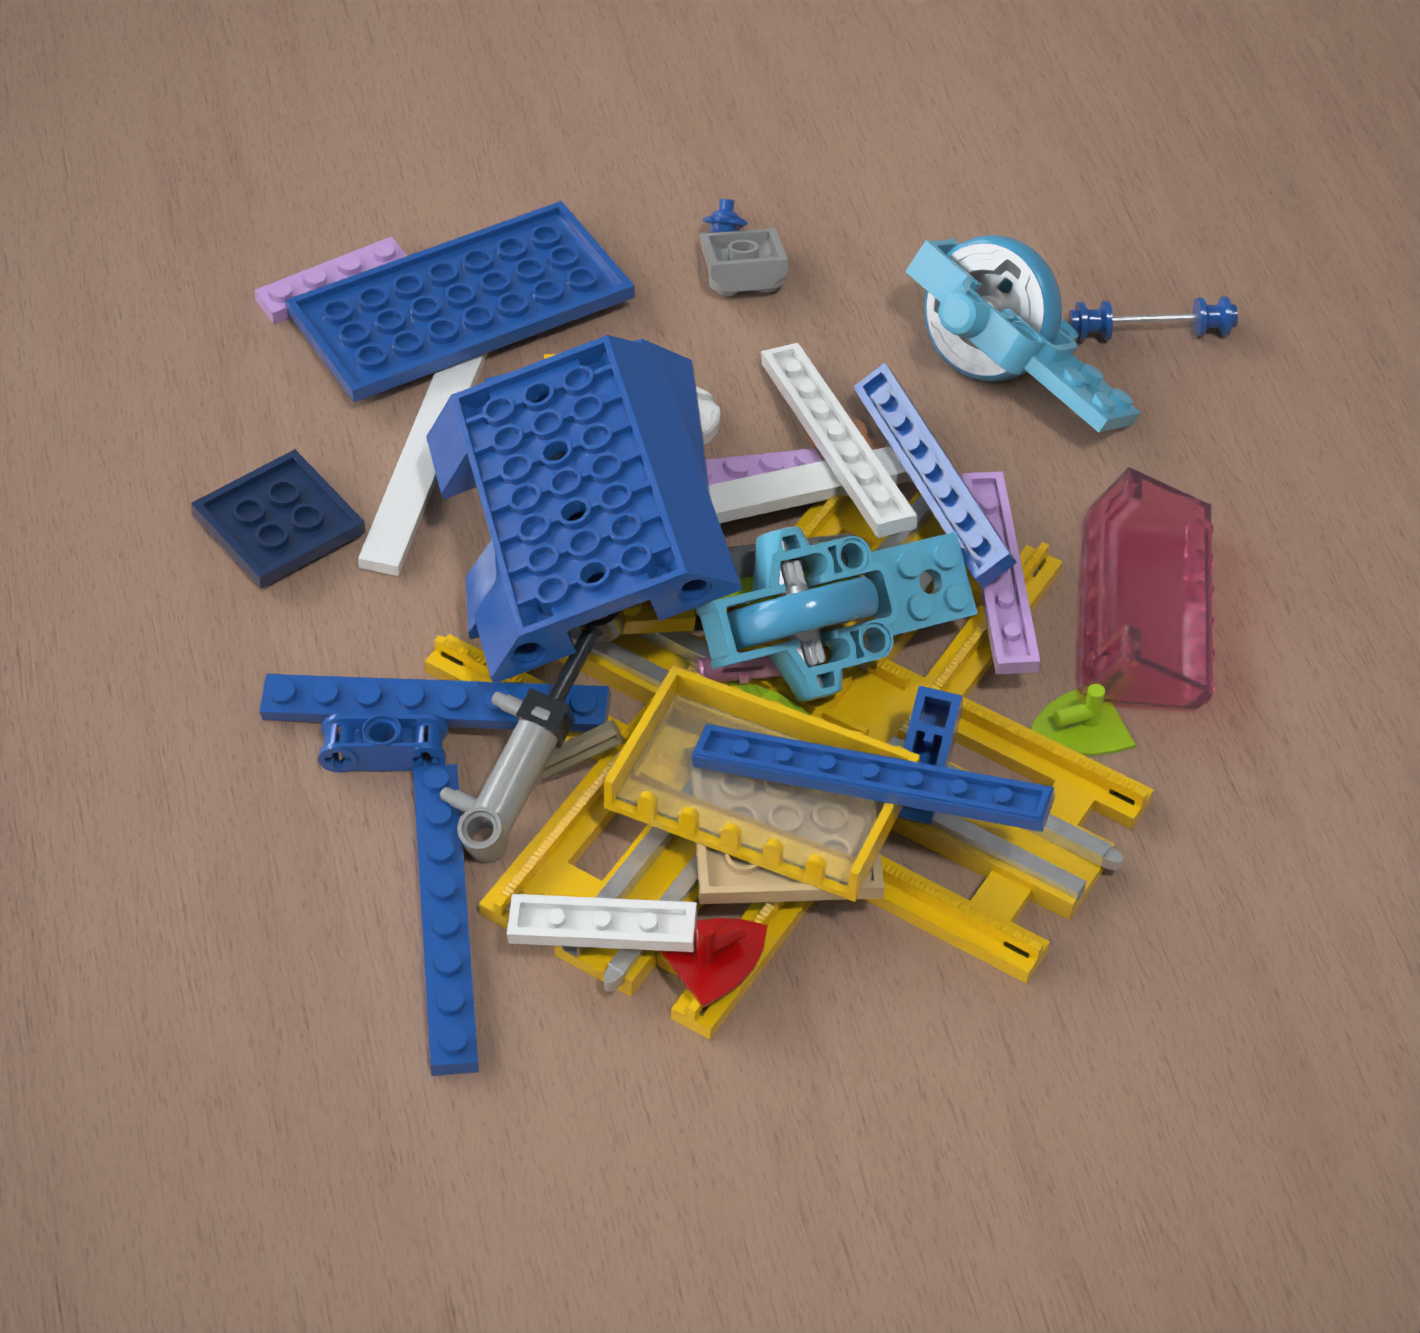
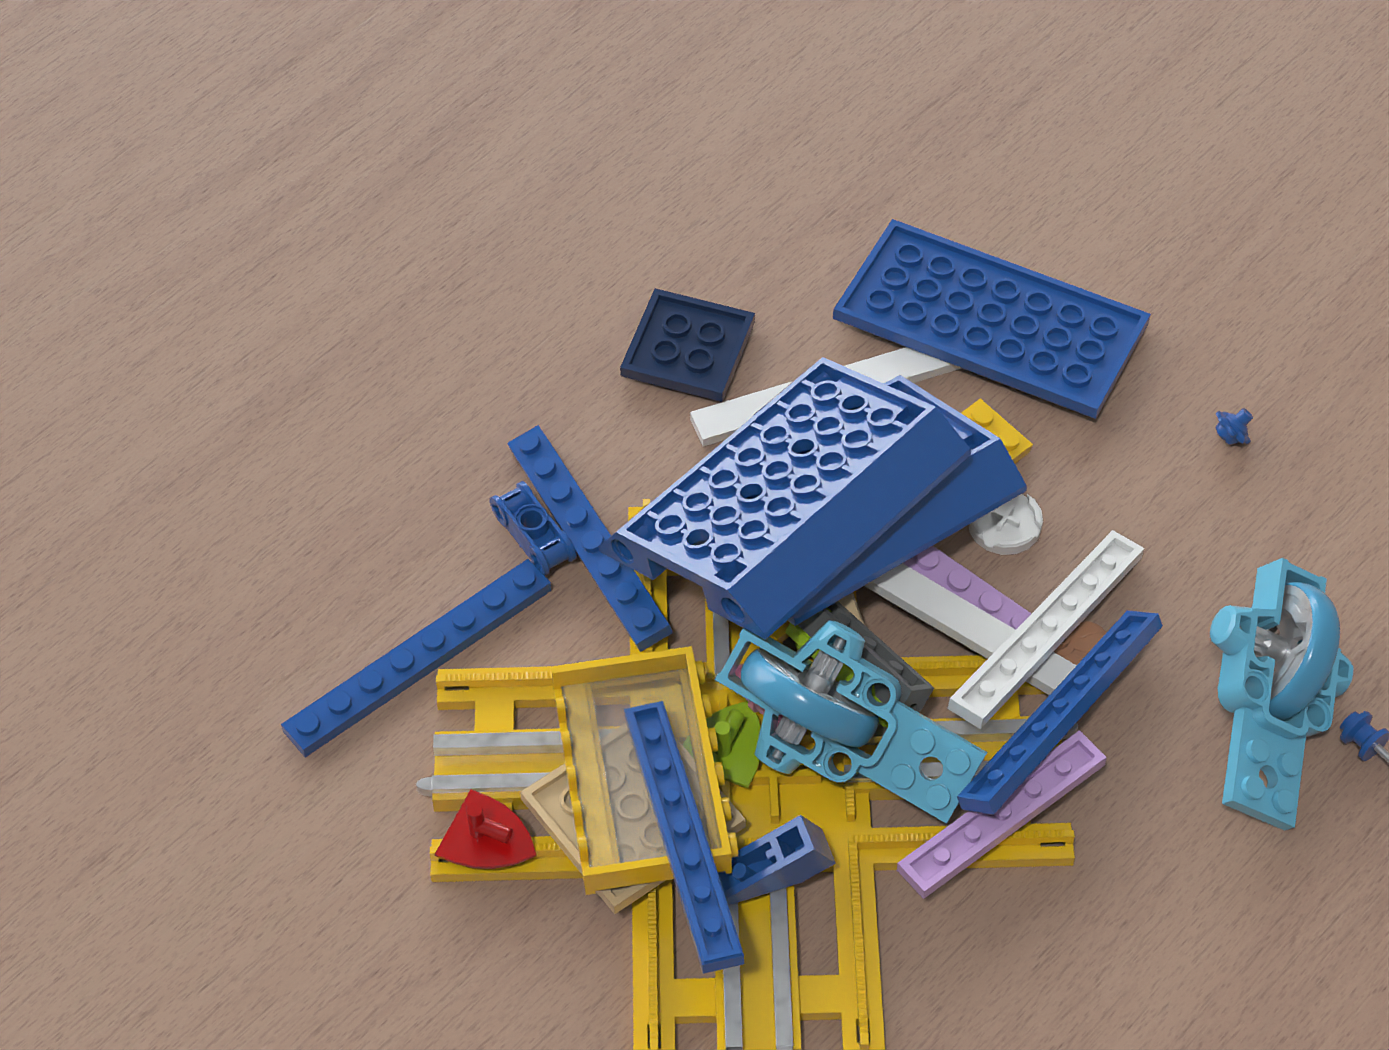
camera: 60 degrees right, 5 degrees up
(272, 296) = (949, 228): lavender plate -> none
(540, 727) = (594, 604): light grey piece -> none
(582, 748) = (598, 638): dark tan axle -> none
(602, 922) = (452, 746): white plate -> none
(744, 261) = (1200, 462): light grey slope -> none
(1084, 723) = (923, 965): lime shield -> none
(1147, 595) = (1083, 939): clear pink windscreen -> none

